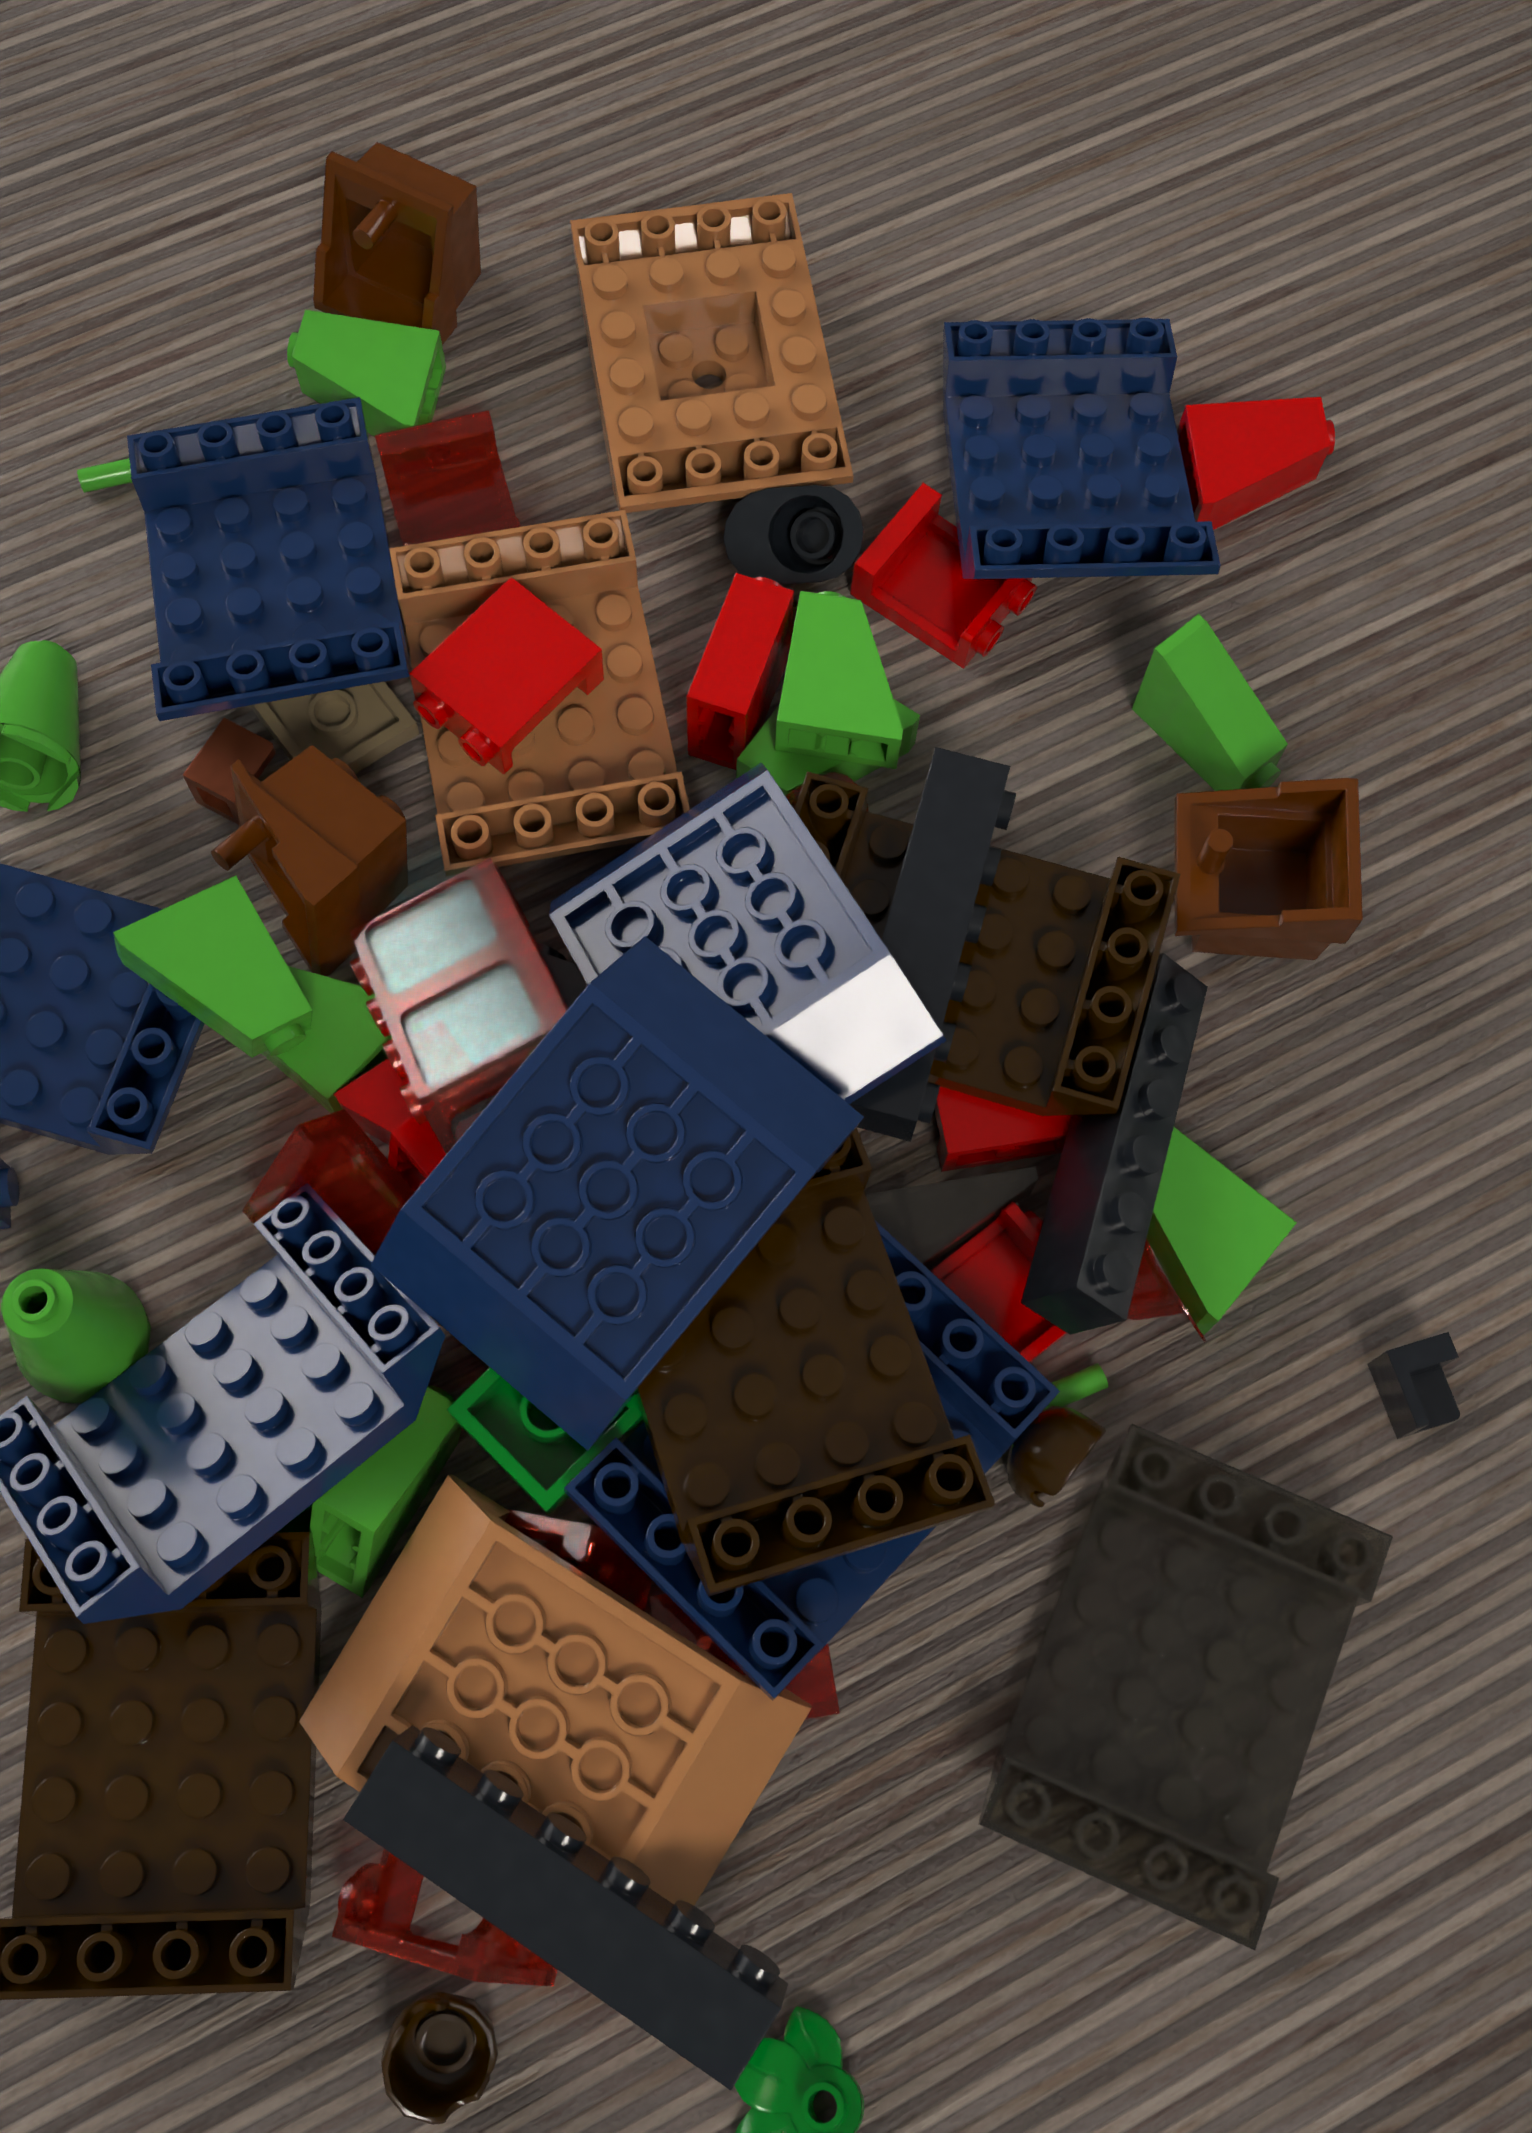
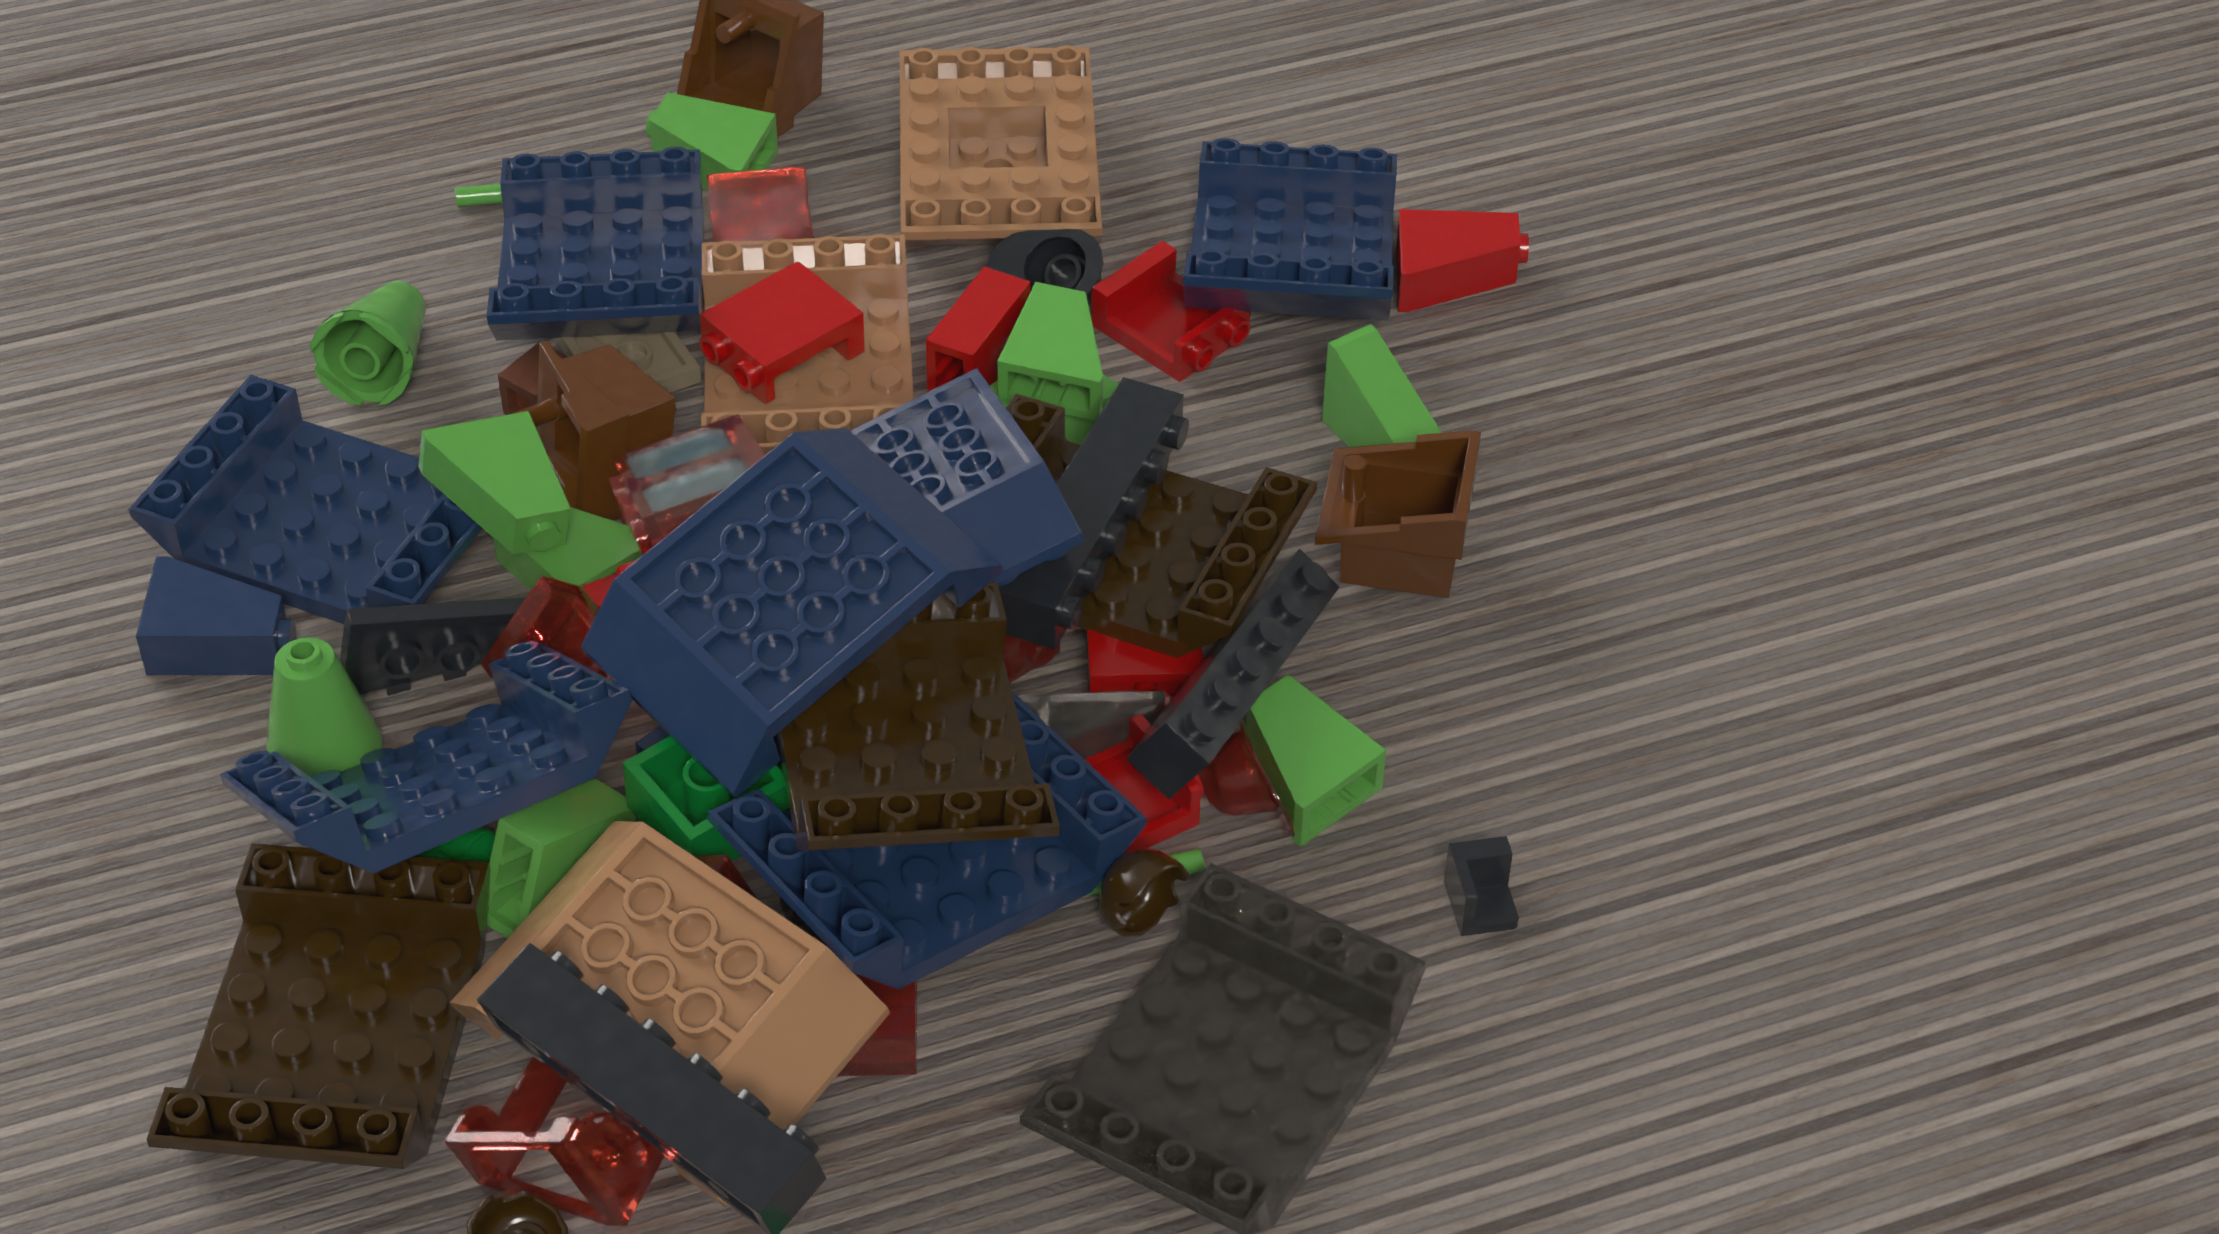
camera: 10 degrees right, 25 degrees down
(175, 1182) = (419, 641): none -> black wing

